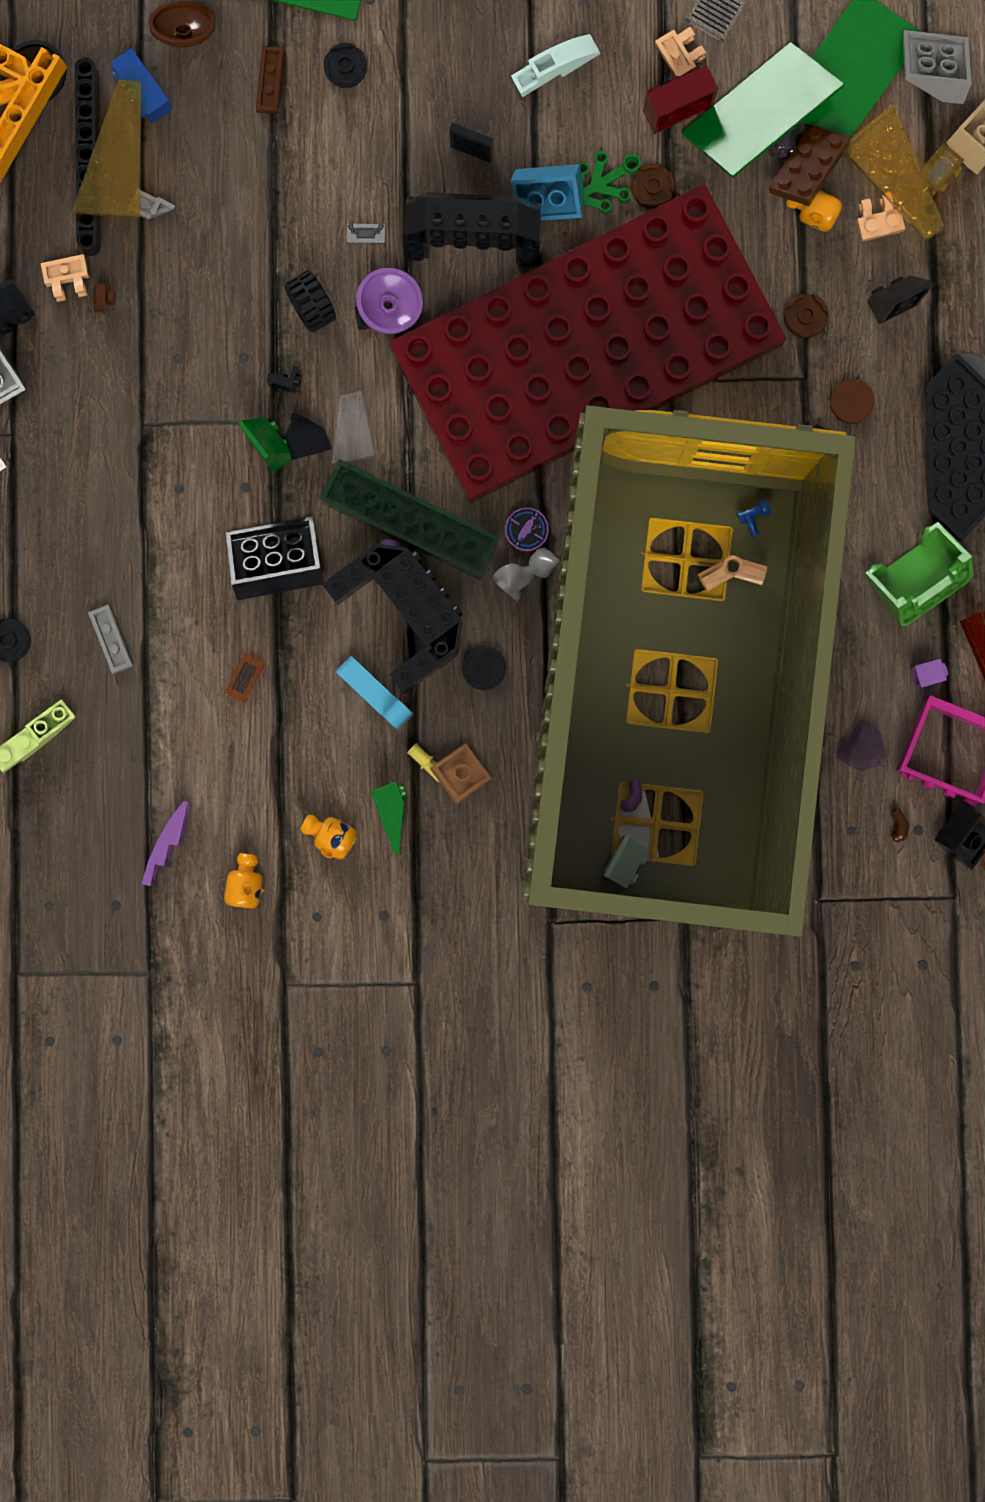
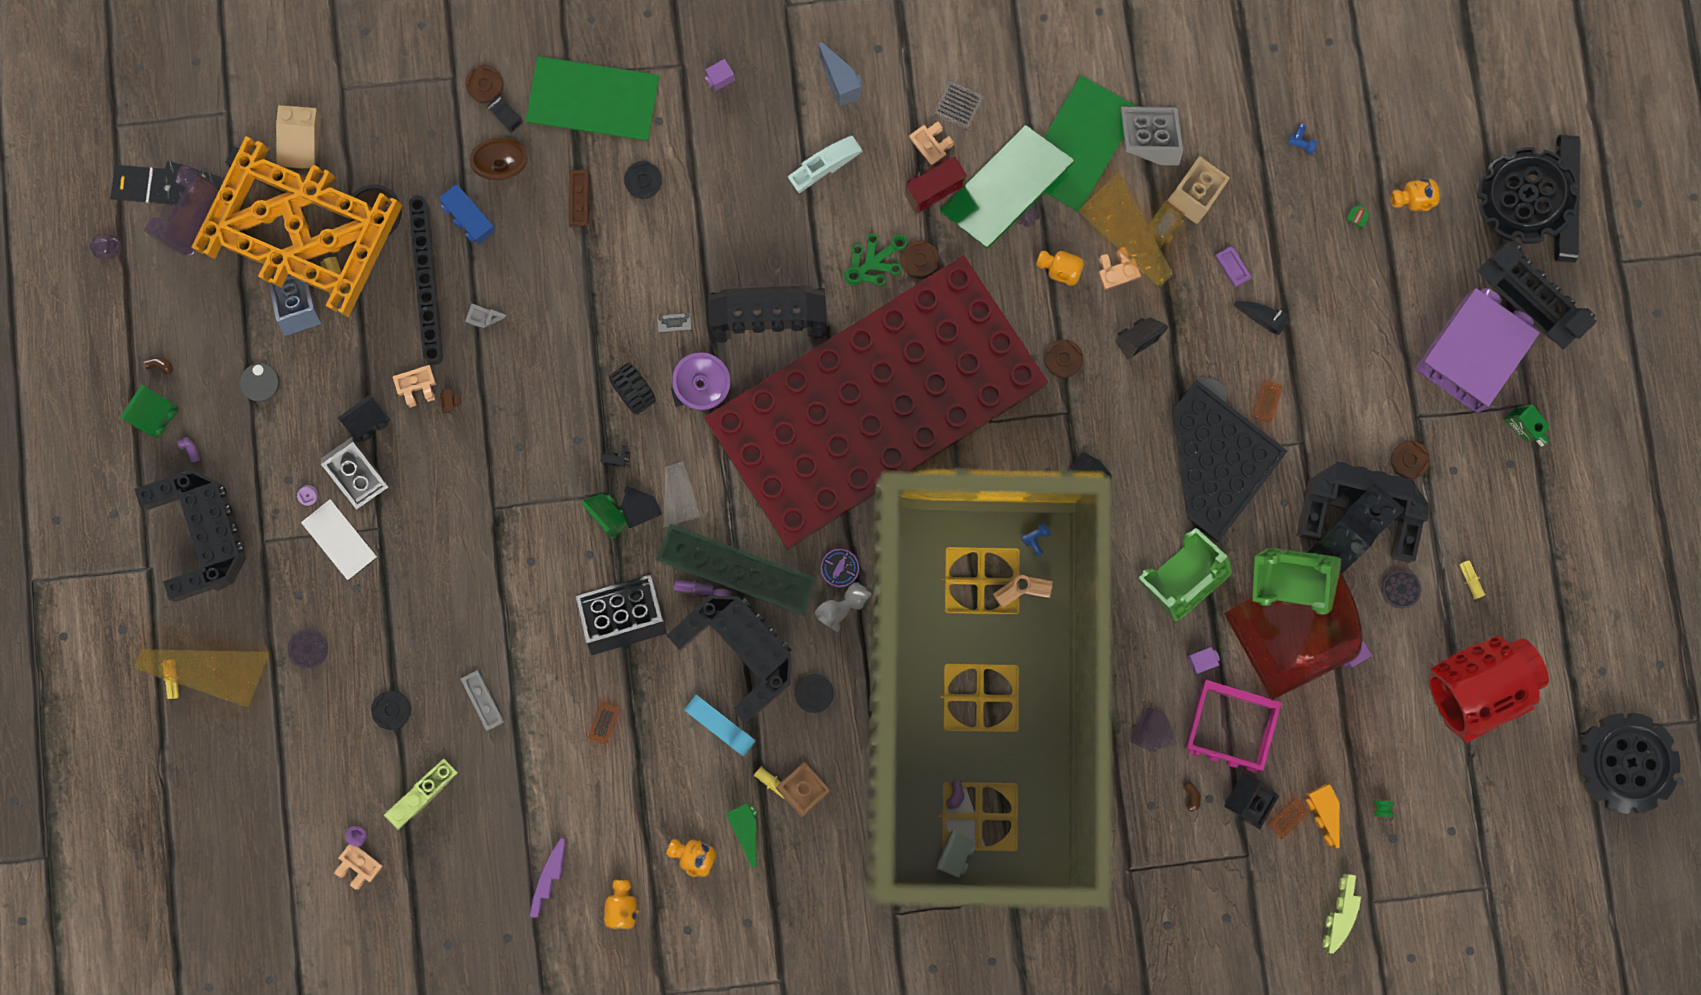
camera: 15 degrees left, 5 degrees down
(113, 171) = (451, 290): clear yellow wing -> none
(358, 535) = (693, 587): none -> medium lavender axle
(471, 142) = (759, 238): black tile -> none
(554, 187) = (834, 271): dark azure slope -> none
(809, 165) = (1052, 230): reddish brown plate -> none
(852, 401) = (1111, 429): reddish brown tile -> none

